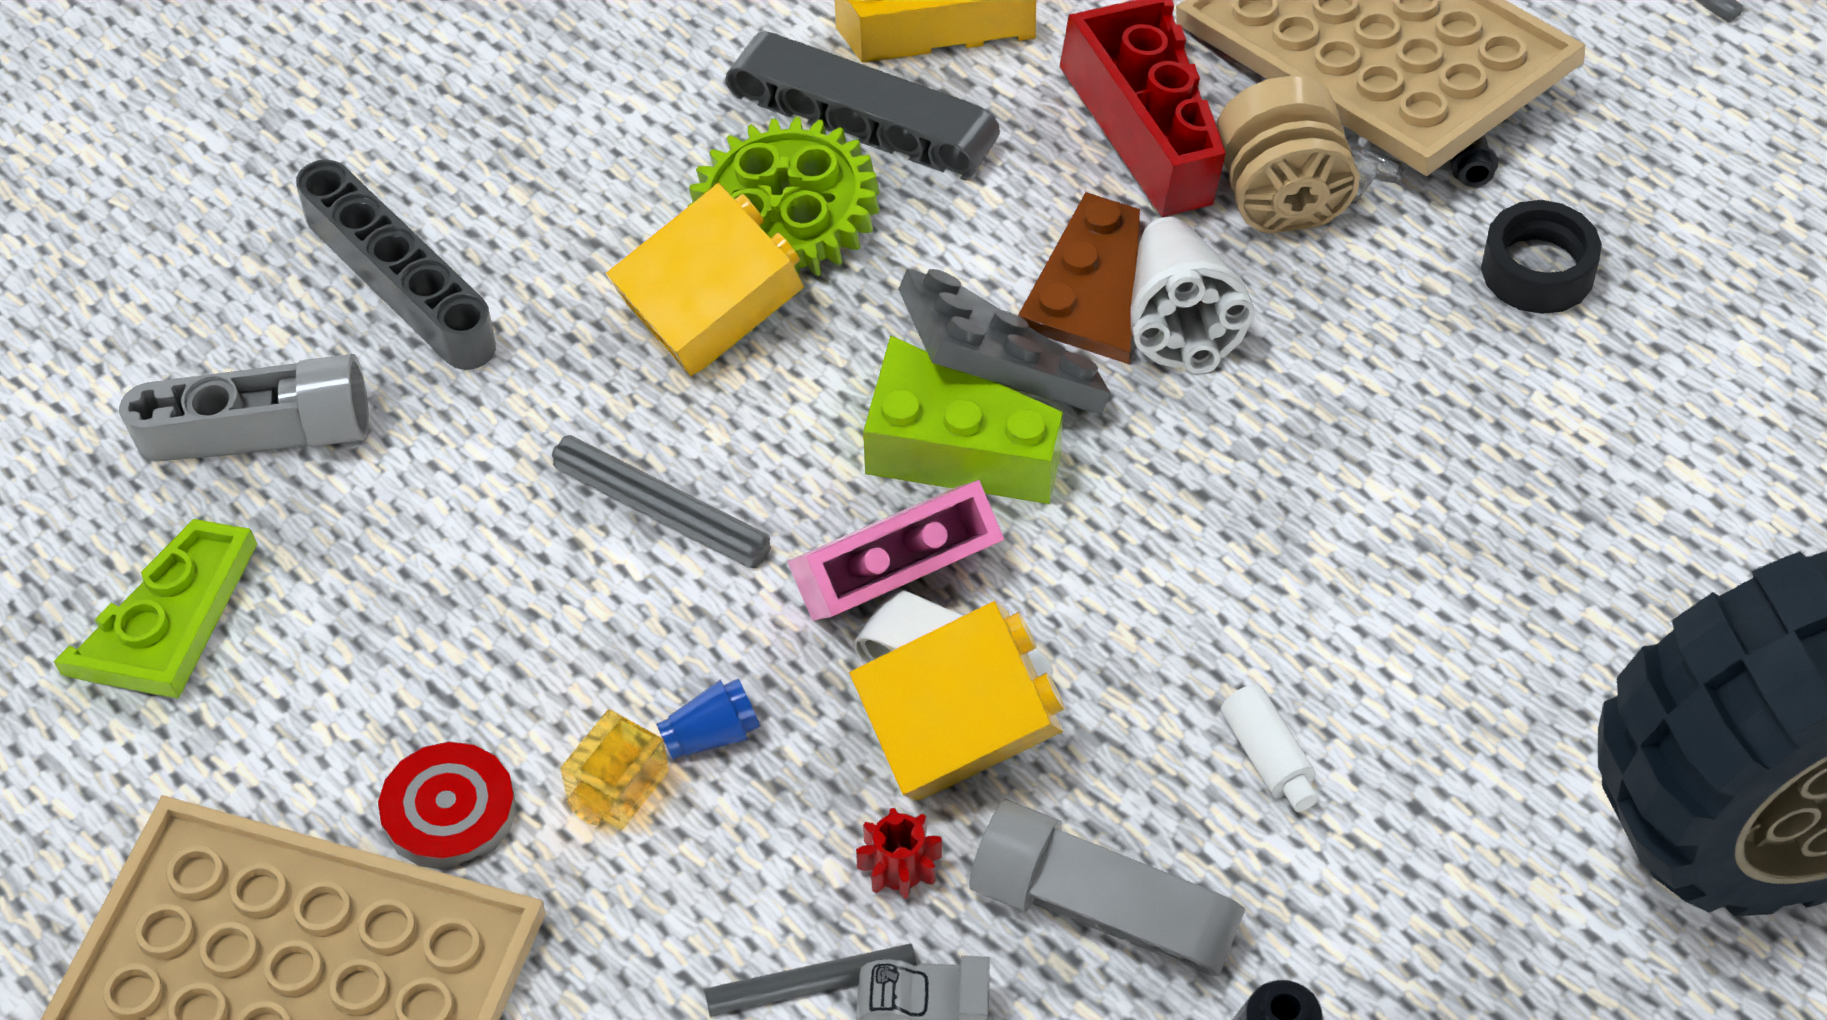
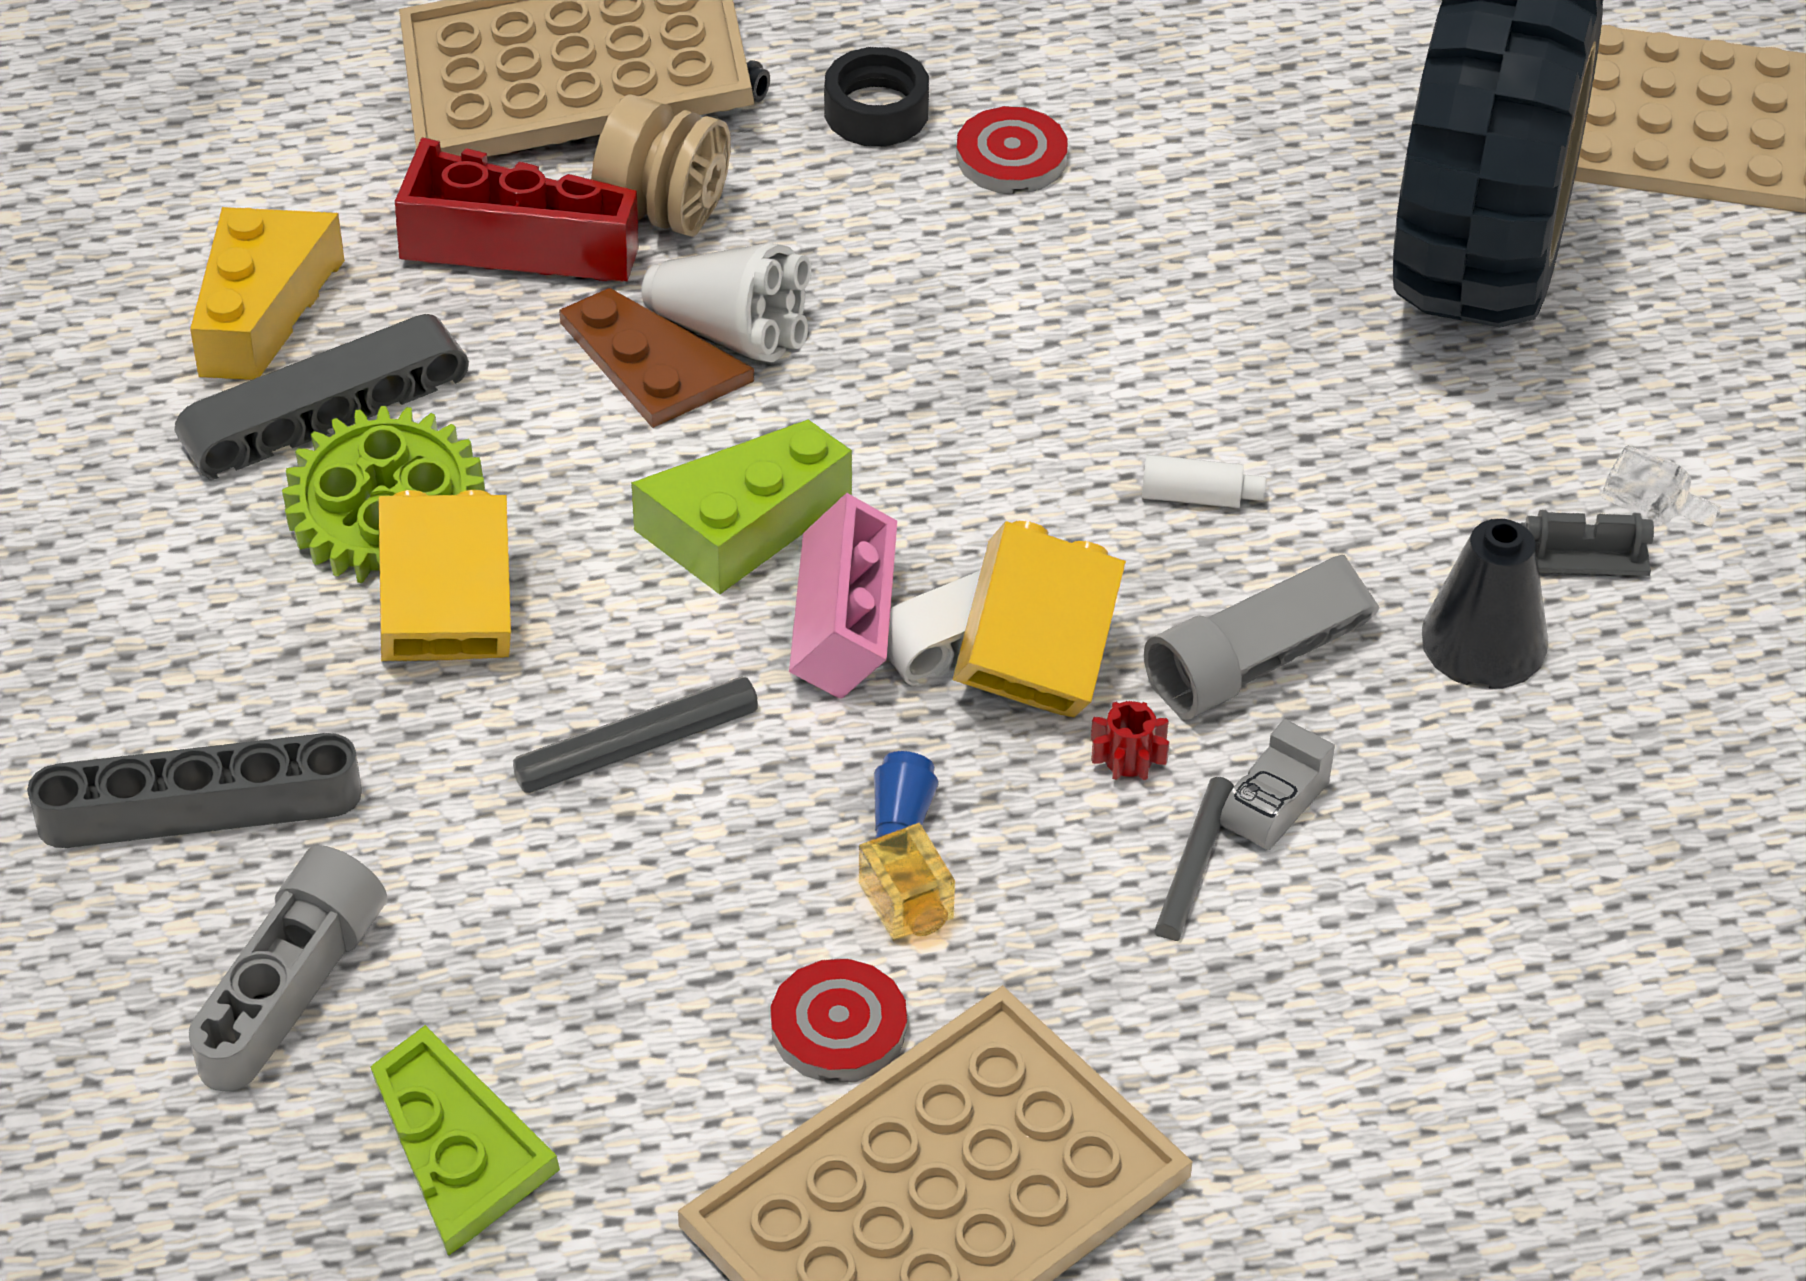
camera: 60 degrees left, 5 degrees down
(996, 344) = (677, 432): dark grey plate -> none
(1577, 388) = (1011, 149): none -> red tile

